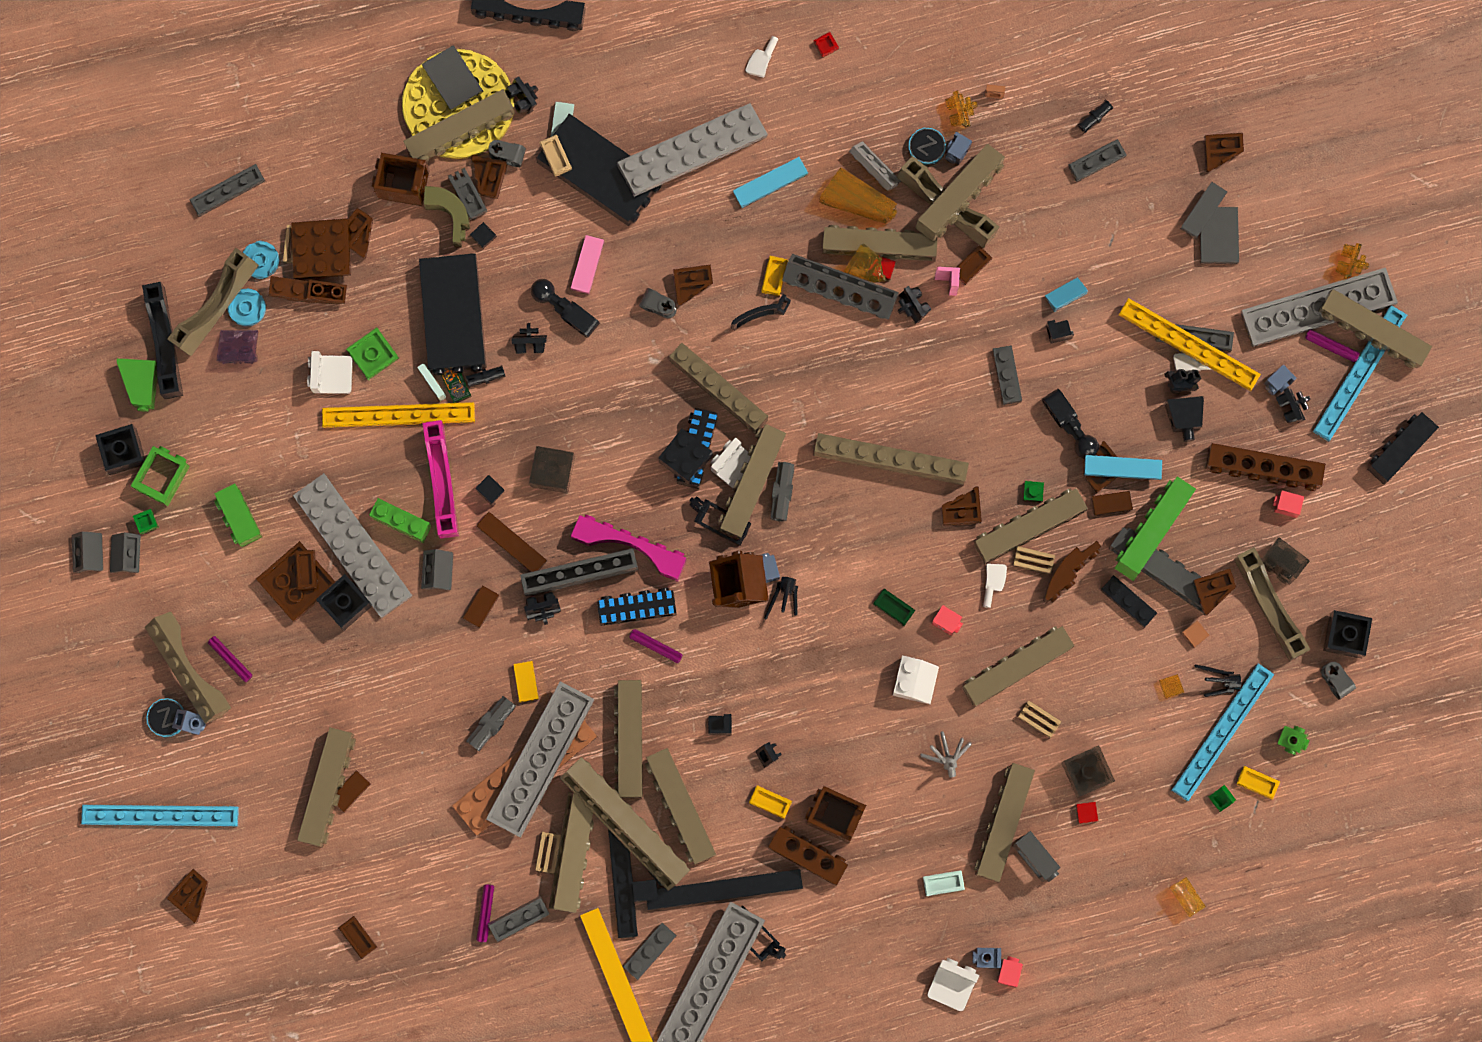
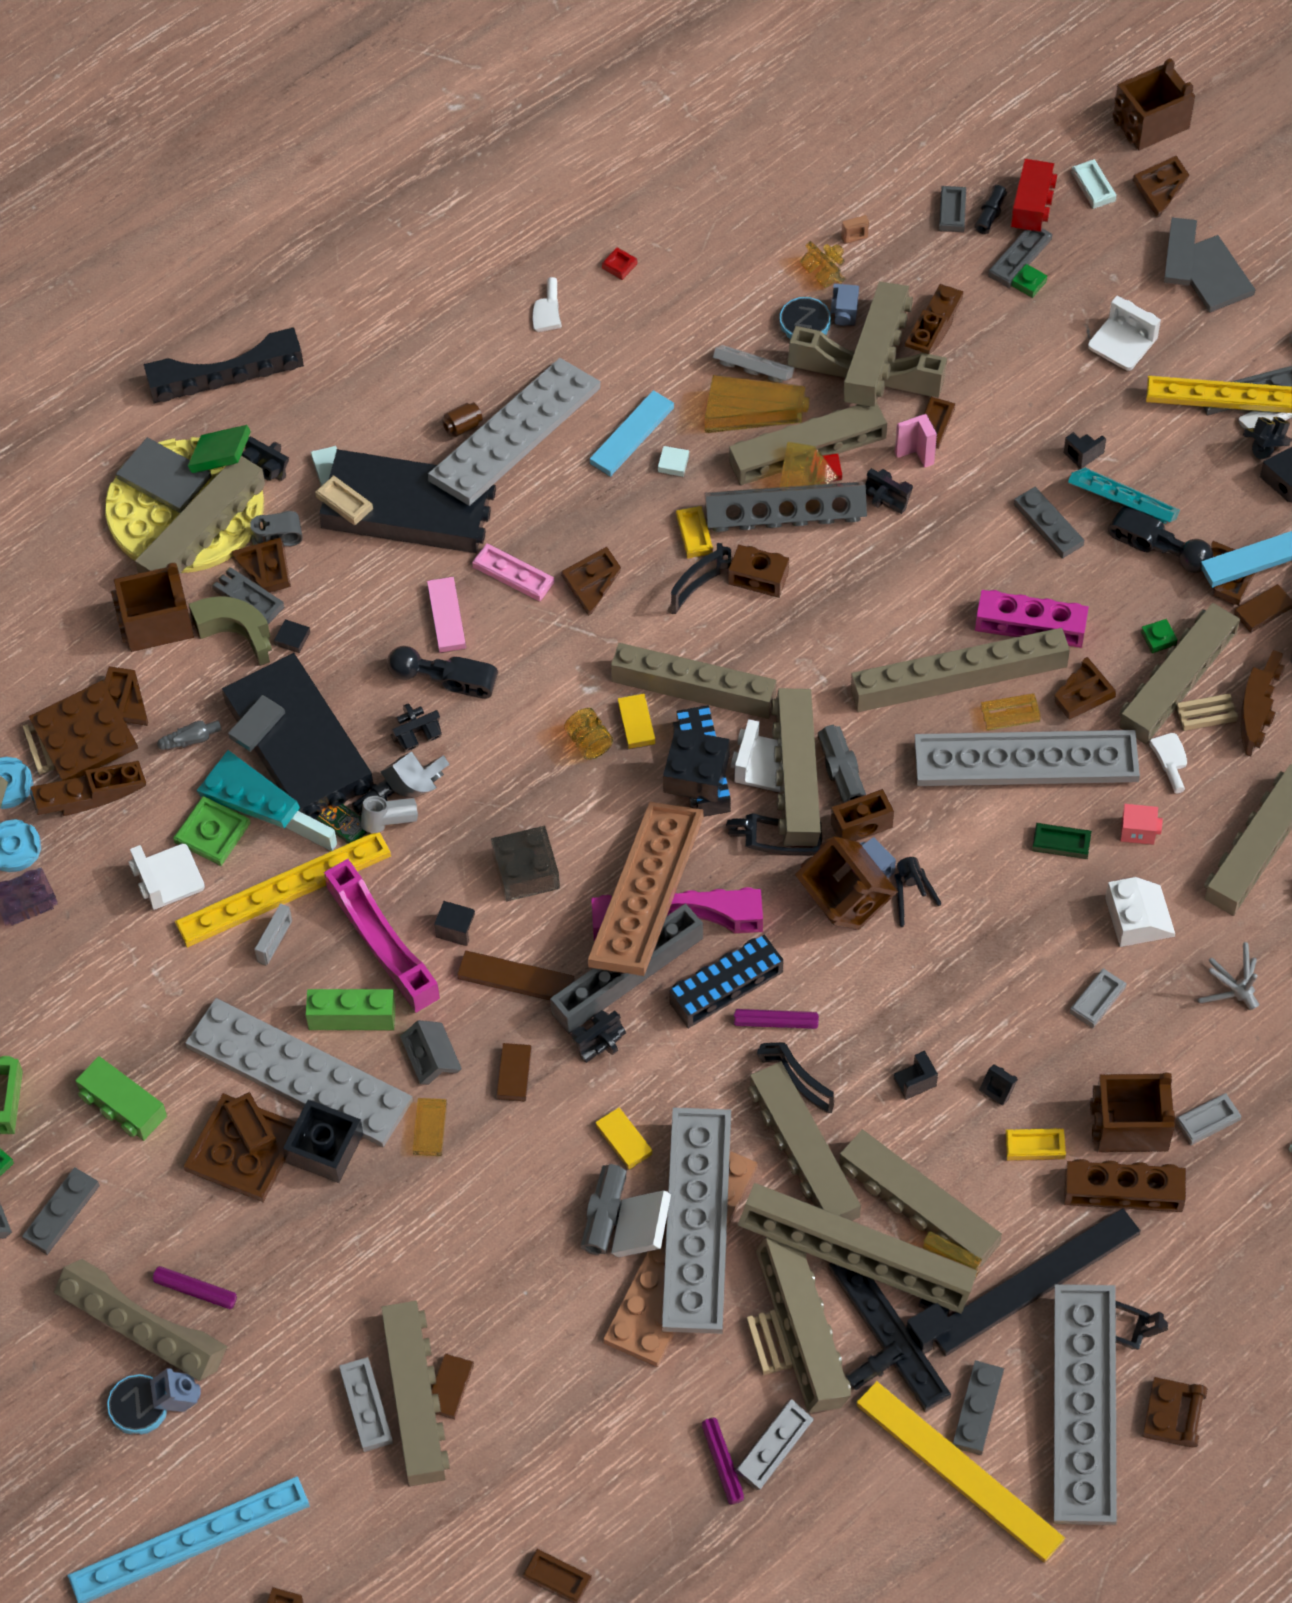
camera: 25 degrees left, 20 degrees down
(173, 571) = (61, 1211): none -> dark grey plate
(296, 781) = (366, 1404): none -> light grey plate
(377, 446) = (273, 934): none -> light grey tile
(390, 279) = (187, 735): none -> dark grey piece
(402, 336) = (247, 791): none -> teal wing
(414, 619) = (429, 1127): none -> clear yellow tile
(428, 295) = (256, 723): none -> dark grey tile
(485, 395) = (379, 812): none -> light grey piece
(493, 78) = (219, 449): none -> green tile
(506, 745) = (641, 1224): none -> white tile
(509, 379) = (411, 779): none -> brick
(601, 898) = (875, 1365): none -> black pin
(614, 526) = (646, 889): none -> nougat plate
(634, 396) = (589, 734): none -> clear yellow wheel
(644, 252) = (513, 572): none -> bright pink tile
(646, 673) = (781, 1053): none -> black sword
(655, 303) = (561, 619): dark grey piece -> none
(664, 122) = (462, 419): none -> reddish brown brick
(670, 398) = (636, 721): none -> yellow tile
(681, 851) = (944, 1248): none -> clear yellow tile
(758, 1004) = (1164, 1412): none -> reddish brown plate
(774, 536) = (862, 816): none -> reddish brown brick
(786, 216) = (673, 461): none -> light aqua tile
(802, 336) = (769, 580): none -> reddish brown brick
(859, 724) = (1098, 998): none -> light grey tile
(883, 835) = (1208, 1119): none -> light grey tile
(901, 540) = (1026, 758): none -> light grey plate
(906, 508) = (1011, 716): none -> clear yellow tile
(945, 441) = (1018, 623): none -> dark pink brick
(1008, 191) = (935, 320): none -> reddish brown slope
(1061, 376) = (1123, 494): none -> teal wing
(1066, 294) = (1069, 407): medium azure slope -> none
(1071, 102) = (952, 209): none -> dark grey tile
(1092, 184) = (1029, 280): none -> green plate
(1128, 120) = (1034, 195): none -> red brick
(1131, 258) = (1125, 334): none -> white bracket
(1177, 126) = (1093, 184): none -> light aqua tile
(1251, 87) = (1154, 105): none -> reddish brown container

